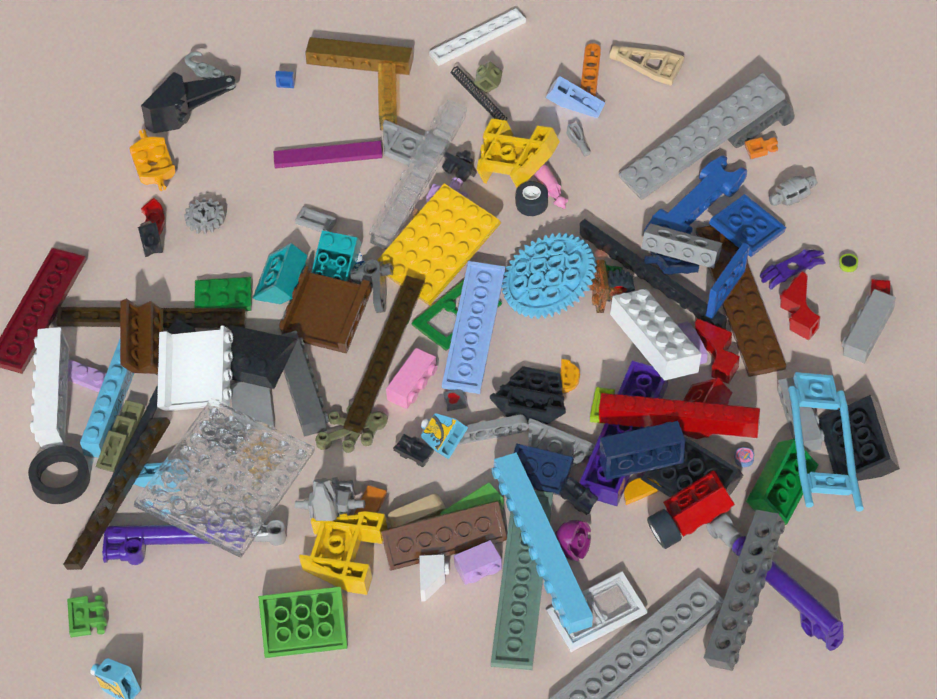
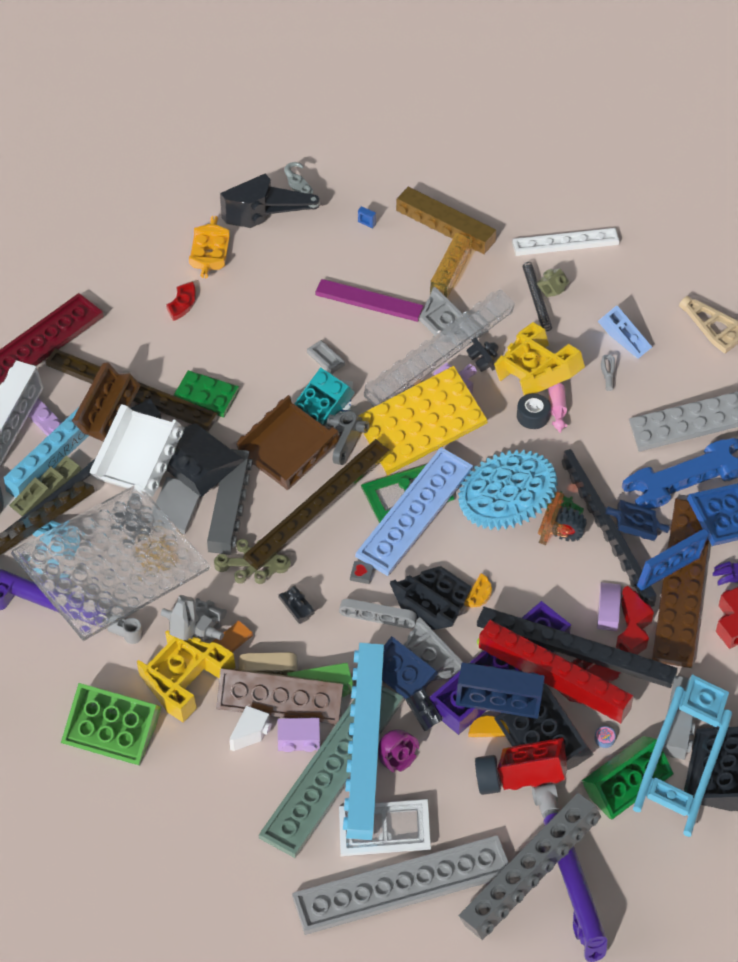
camera: 20 degrees right, 0 degrees up
(150, 238) = (166, 317): black hips -> none
(204, 216) = (227, 314): light grey gear -> none
(280, 275) = (265, 394): teal slope -> none
(411, 378) = (331, 536): bright pink brick -> none
(443, 433) = (329, 601): medium azure torso -> none
(591, 71) = (655, 312): orange beam -> none
(655, 334) = (577, 584): white brick -> none
(681, 245) = (648, 509): light grey brick -> none
(691, 386) = (583, 648): none -> black plate

